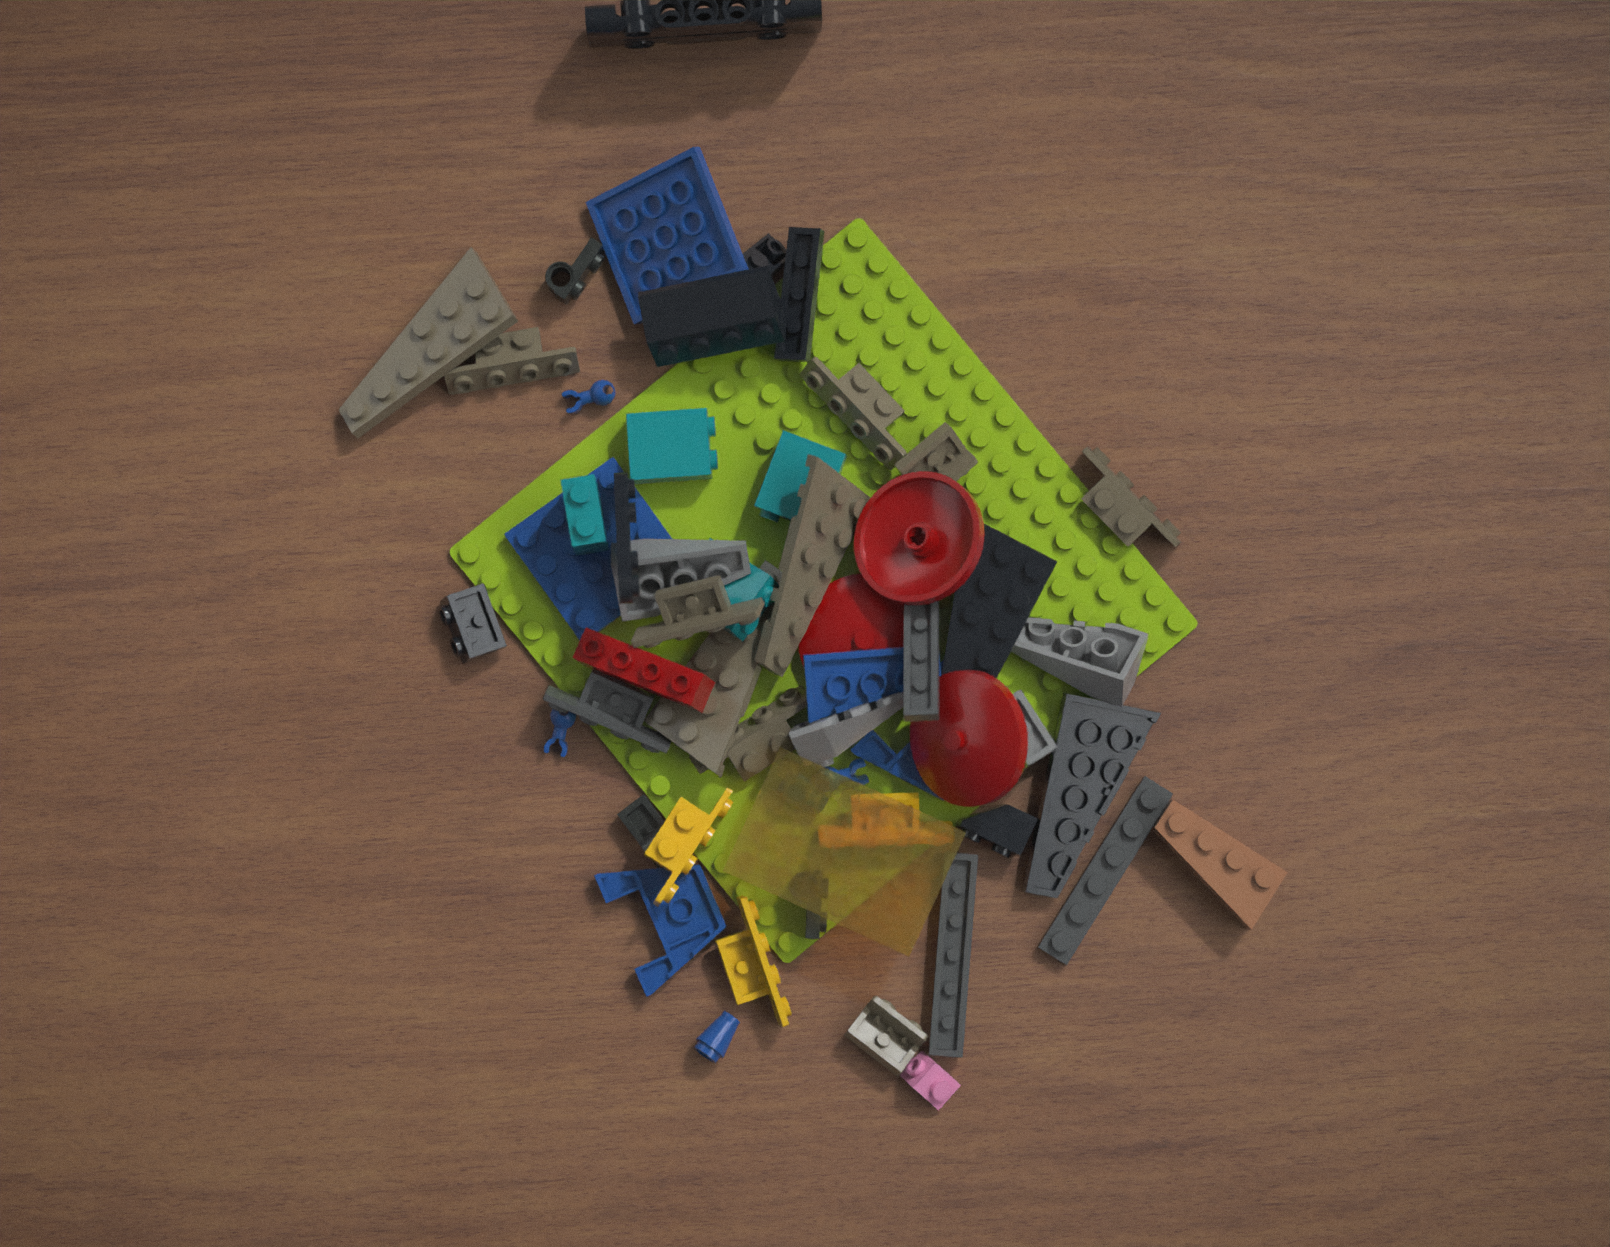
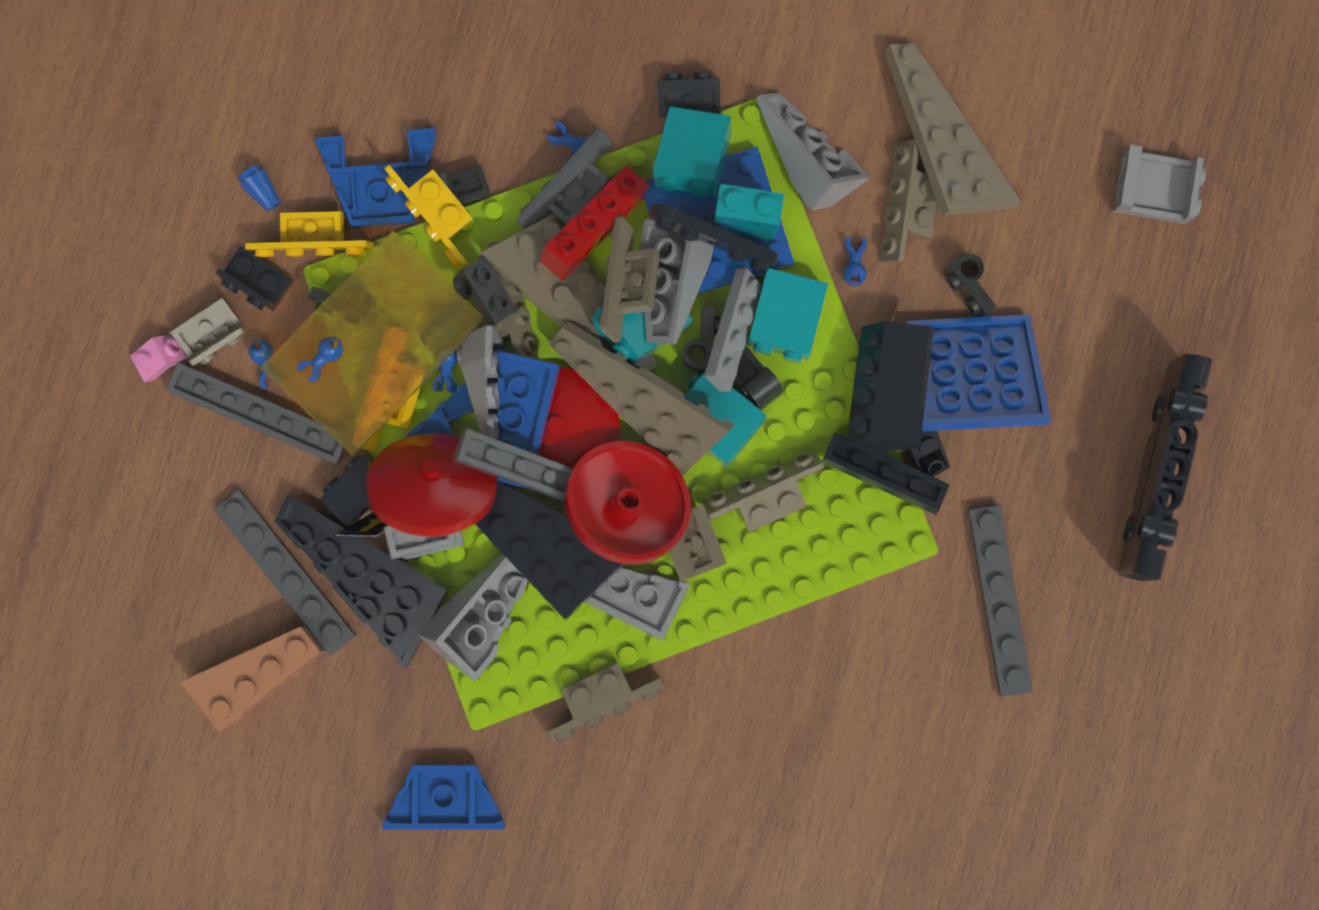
camera: 110 degrees right, 0 degrees up
(407, 113) = (1159, 186): none -> light grey panel
(502, 470) = (813, 165): none -> light grey wedge
(535, 596) = (692, 151): none -> teal brick
(706, 493) = (733, 330): none -> light grey plate
(708, 521) = (709, 327): none -> pearl dark grey plate
(746, 460) = (757, 381): none -> pearl dark grey plate
(750, 757) = (484, 287): none -> pearl dark grey plate
(814, 1008) = (255, 278): none -> black bracket
(873, 892) = (325, 353): none -> blue arm
(886, 141) = (999, 601): none -> dark grey plate
(893, 971) = (260, 357): none -> blue arm
(1011, 494) = (640, 600): none -> light grey wing
(1030, 795) = (367, 526): none -> black sticker
(1276, 628) = (444, 800): none -> blue wing

